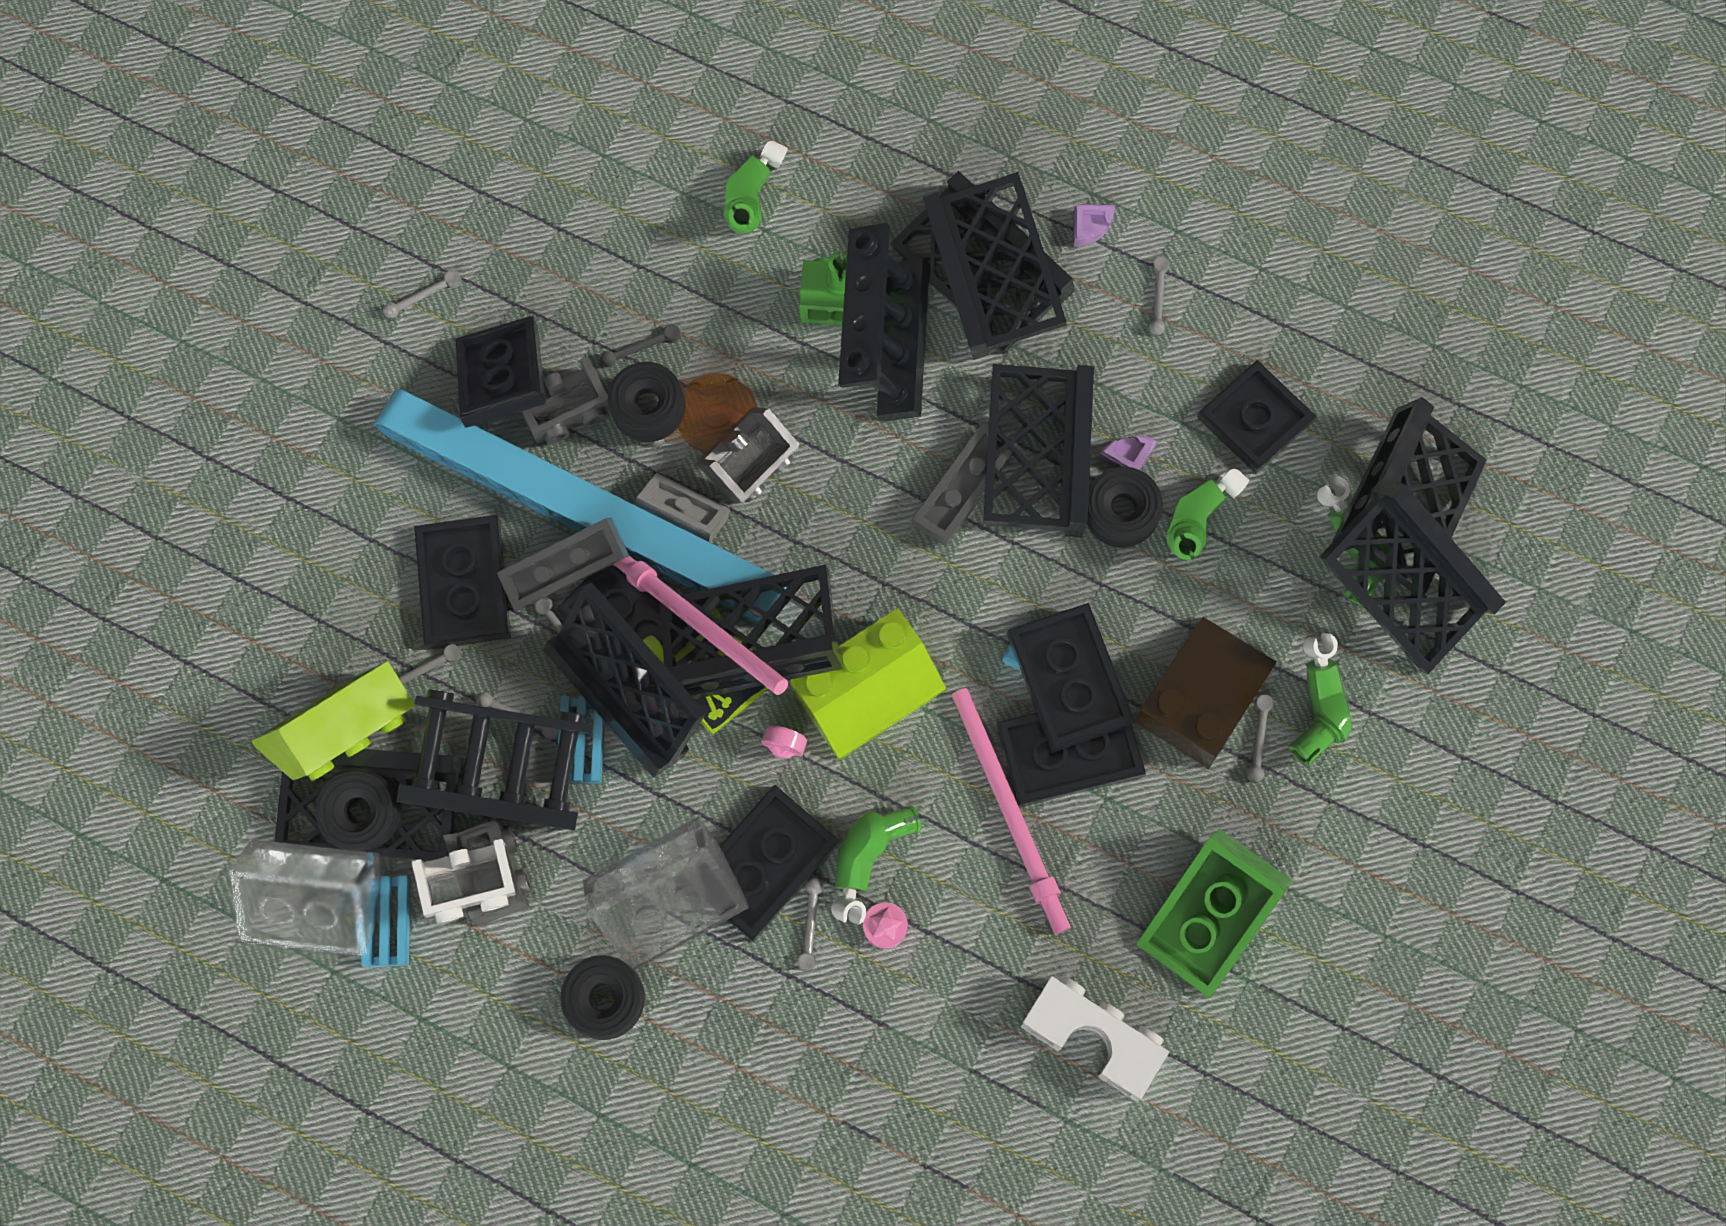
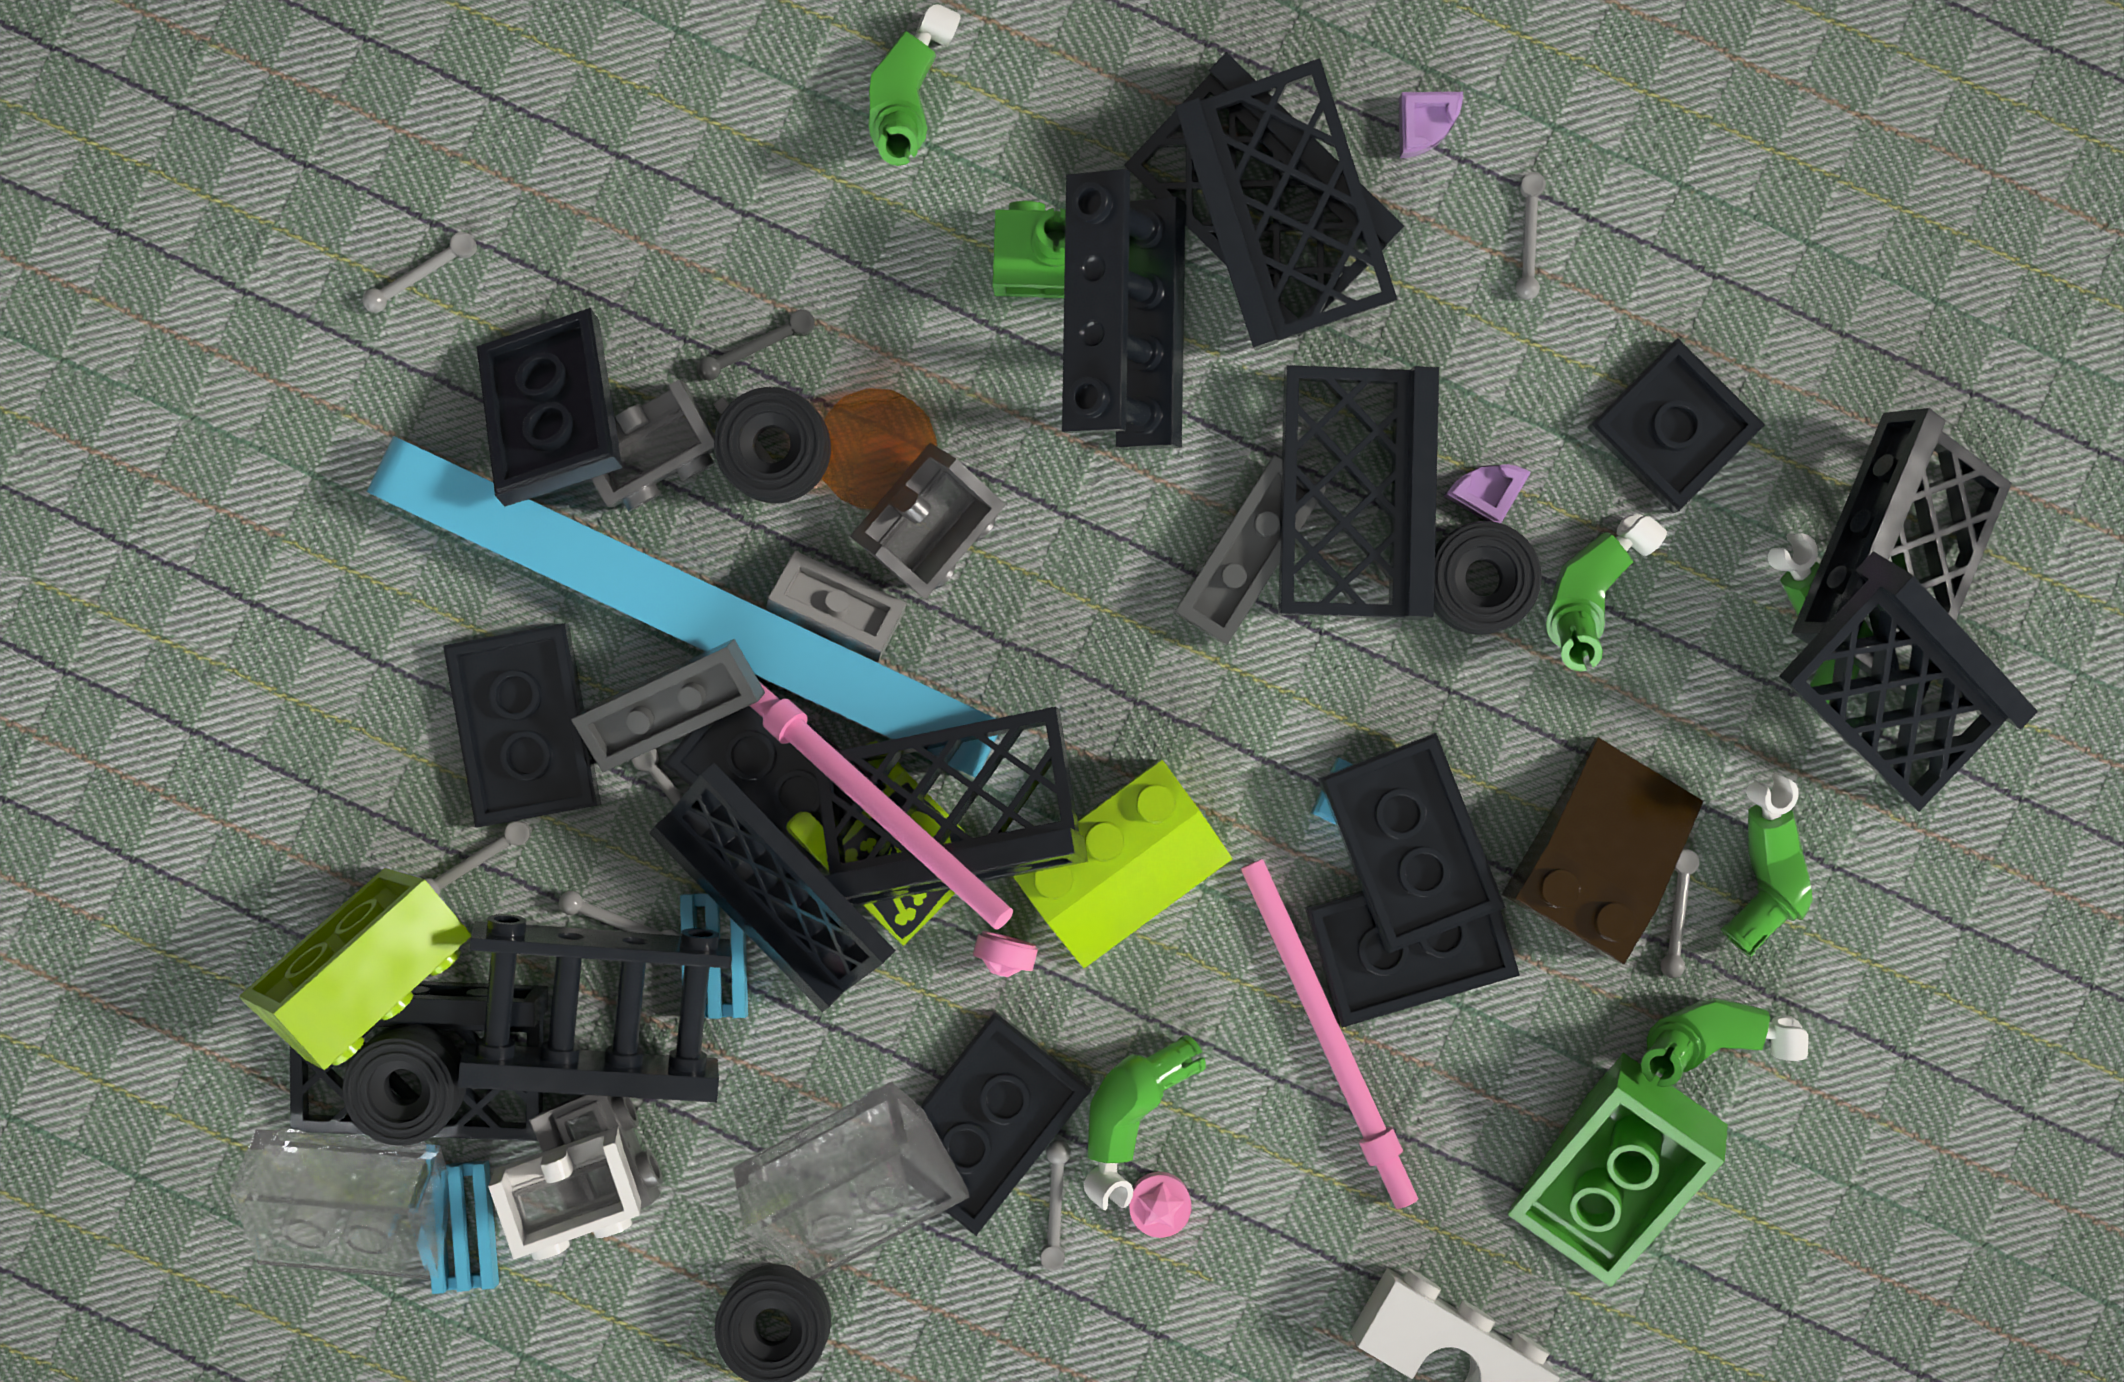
camera: 10 degrees left, 15 degrees up
(1270, 816) = (1698, 1030): none -> bright green arm

